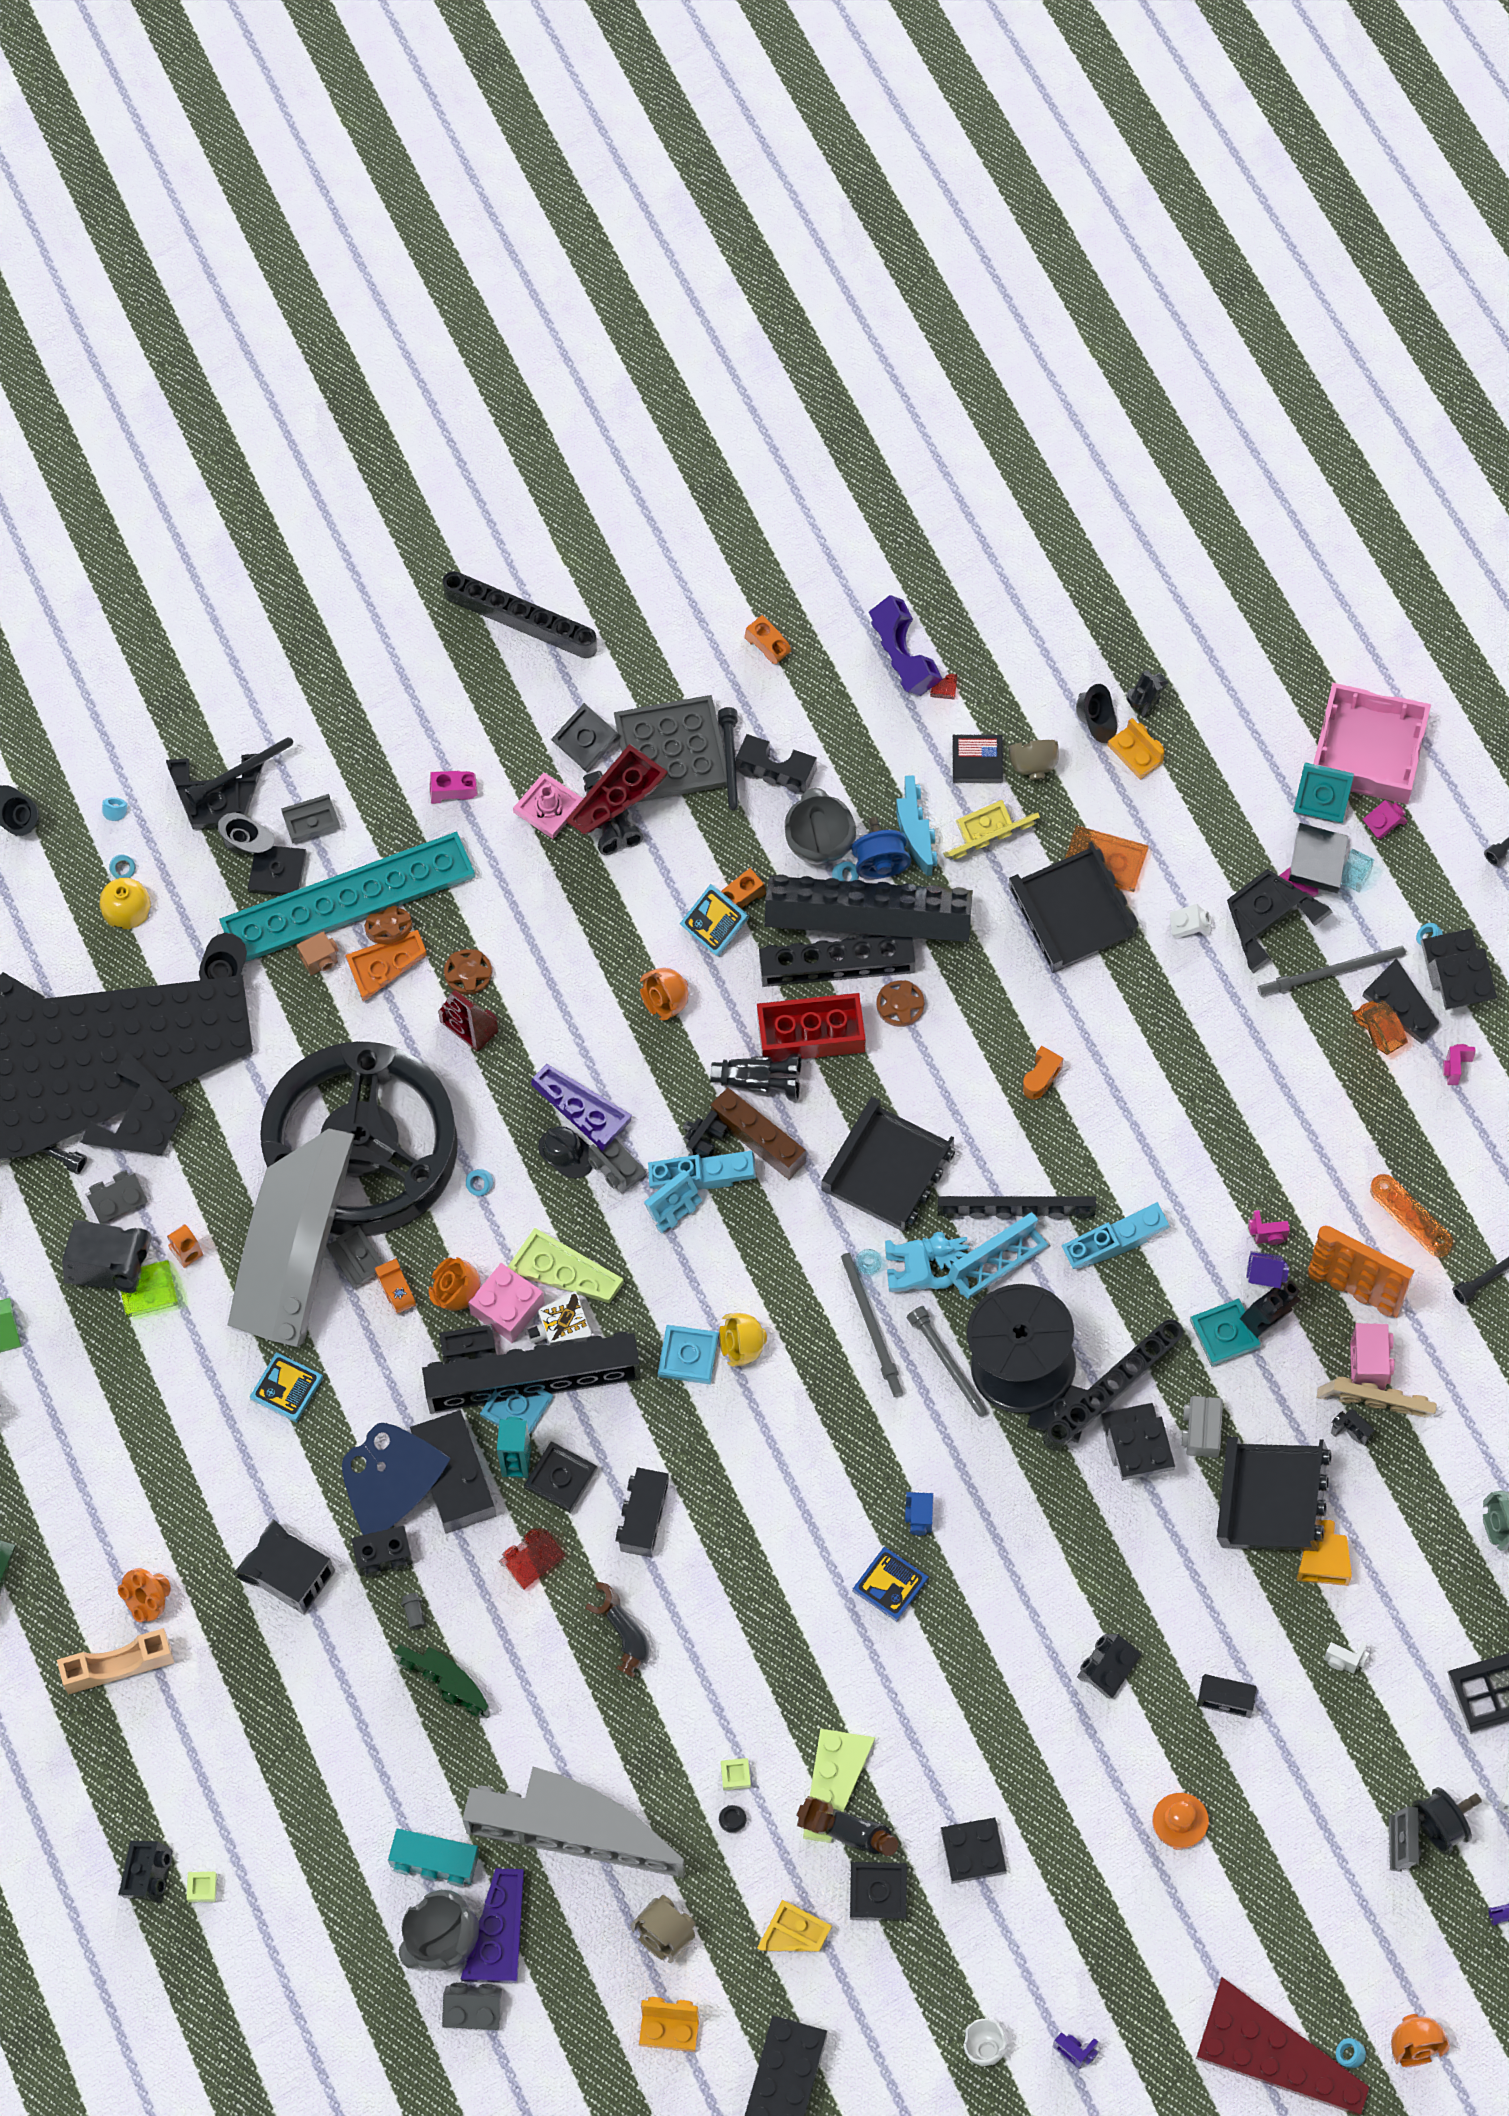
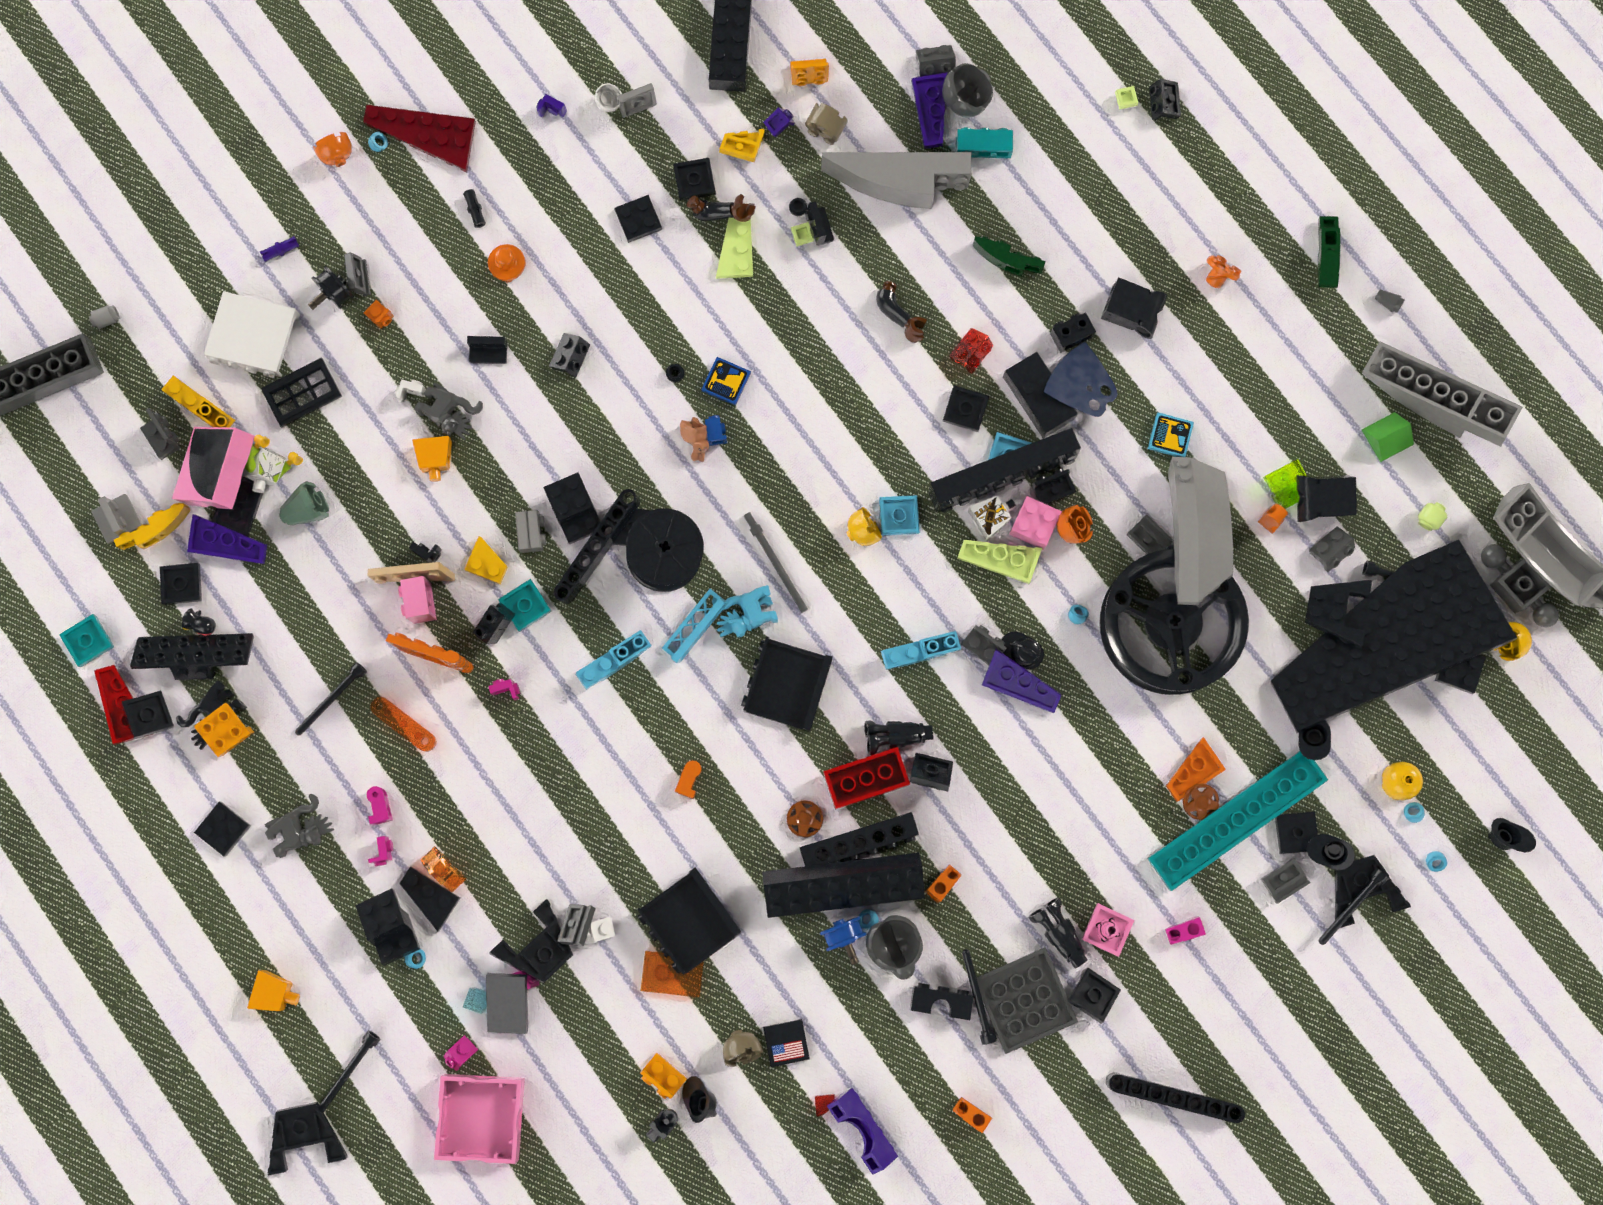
camera: 165 degrees right, 15 degrees up
(91, 1670) = (1239, 216): light nougat arch -> none
(318, 953) = (1246, 767): nougat brick -> none
(395, 1286) = (1115, 520): orange leg -> none
(413, 1610) = (1040, 298): dark grey pin -> none
(468, 971) = (1131, 778): dark orange wheel -> none
(468, 1020) = (1120, 728): dark red wedge -> none
(514, 1447) = (1002, 409): teal brick -> none
(619, 788) = (1054, 946): dark red wedge -> none
(642, 1512) = (904, 394): black brick -> none
(664, 992) = (980, 787): orange cylinder -> none
(673, 1201) = (936, 619): medium azure plate -> none
(701, 1132) = (927, 670): black hips -> none
(706, 1782) = (819, 224): none -> black bracket
(714, 920) = (958, 855): tile -> none
(724, 1019) = (931, 772): none -> black plate
(731, 1955) = (779, 121): none -> dark purple bracket
(759, 1134) = (886, 687): reddish brown brick -> none
(868, 1269) = (791, 612): clear light blue plate -> none
(916, 829) = (819, 961): medium azure slope -> none
(920, 1319) = (742, 571): dark grey piece -> none
(942, 2022) = (637, 100): none -> light grey plate
(950, 1510) = (695, 434): none -> nougat animal
(962, 1601) = (675, 367): none -> black plate
(985, 824) = (767, 980): light yellow bracket -> none
(1007, 1206) = (680, 670): black plate -> none
(1216, 928) = (576, 924): none -> dark grey plate
(1216, 1913) = (474, 208): none -> black pin
(1266, 1269) = (495, 629): dark purple arch -> none
(1271, 1400) = (486, 562): none -> yellow wing
(1273, 1496) = (473, 487): black panel -> none
(1285, 983) = (519, 893): dark grey bar -> none
(1299, 1625) = (442, 408): none -> dark grey animal
(1323, 792) = (510, 1062): teal plate -> none
(1379, 1779) = (379, 314): none -> orange bracket
(1452, 1114) = (380, 806): none -> dark pink leg

